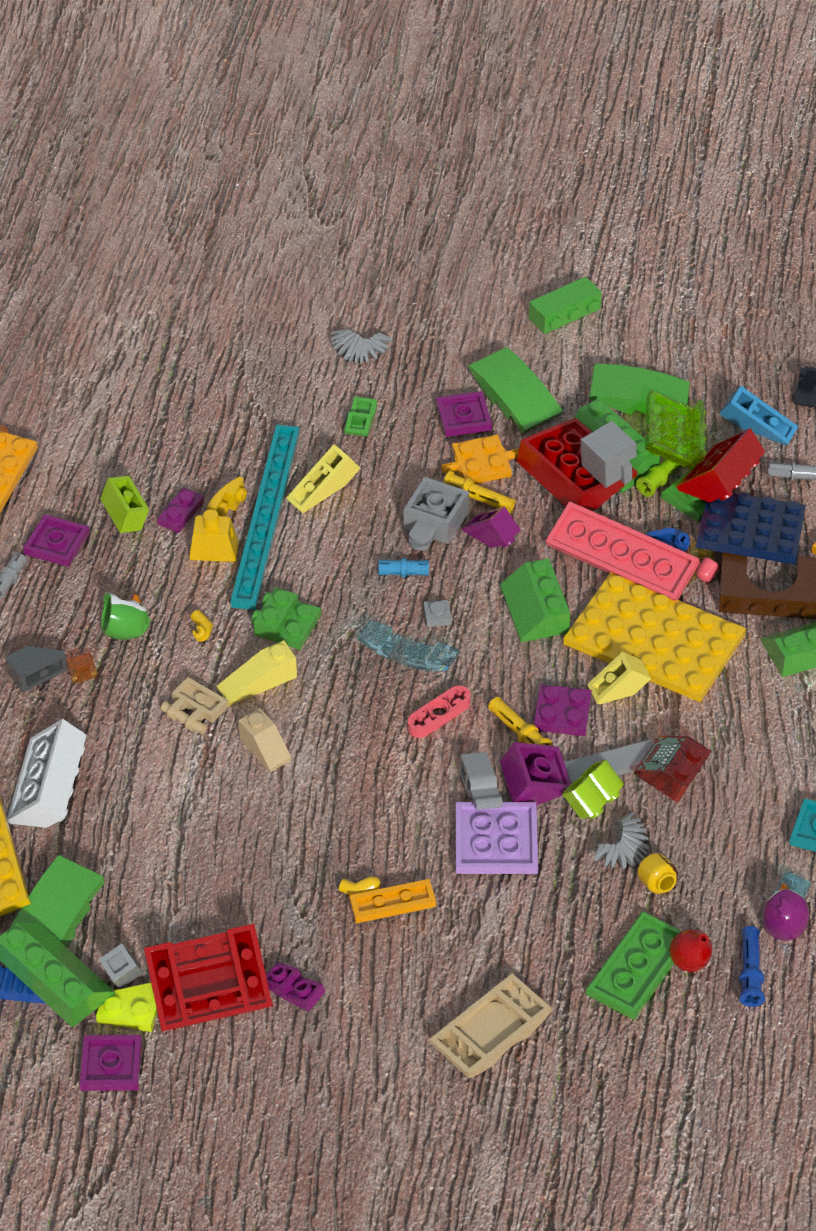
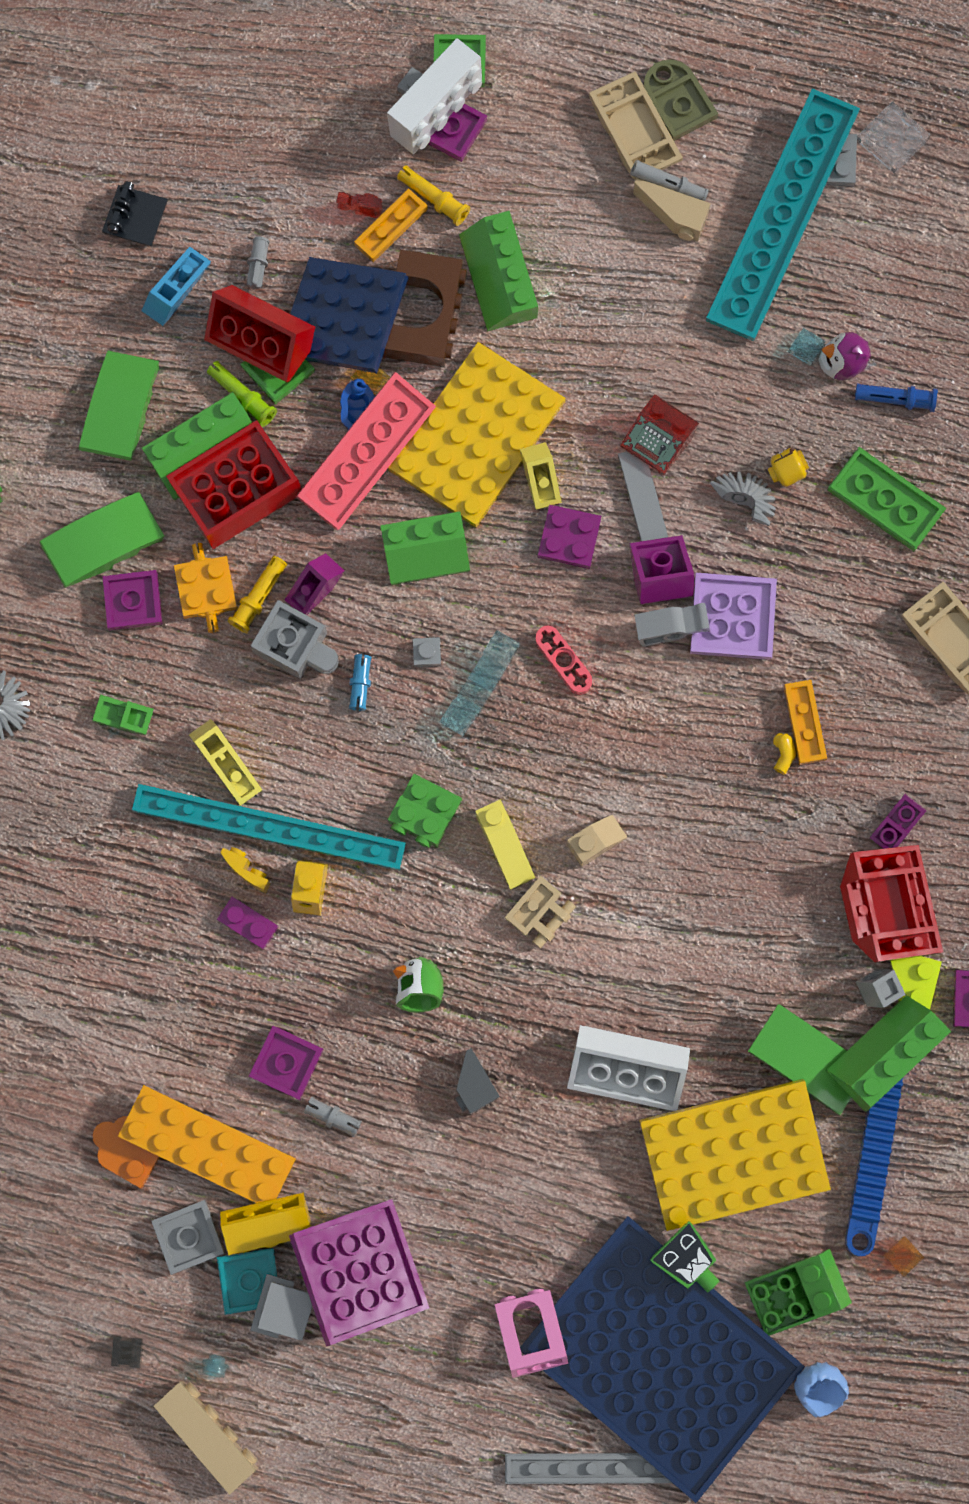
camera: 85 degrees left, 30 degrees up
(81, 668) = (474, 1033): clear orange plate -> none
(124, 504) = (247, 983): lime brick -> none
(204, 626) = (427, 900): yellow arm -> none
(525, 732) = (603, 574): yellow pin -> none
(593, 789) = (686, 515): lime brick -> none
(608, 454) = (254, 441): light grey plate -> none
(675, 430) = (200, 370): clear neon green bracket -> none
(691, 950) = (880, 446): red helmet -> none
(707, 570) = (391, 365): coral piece -> none

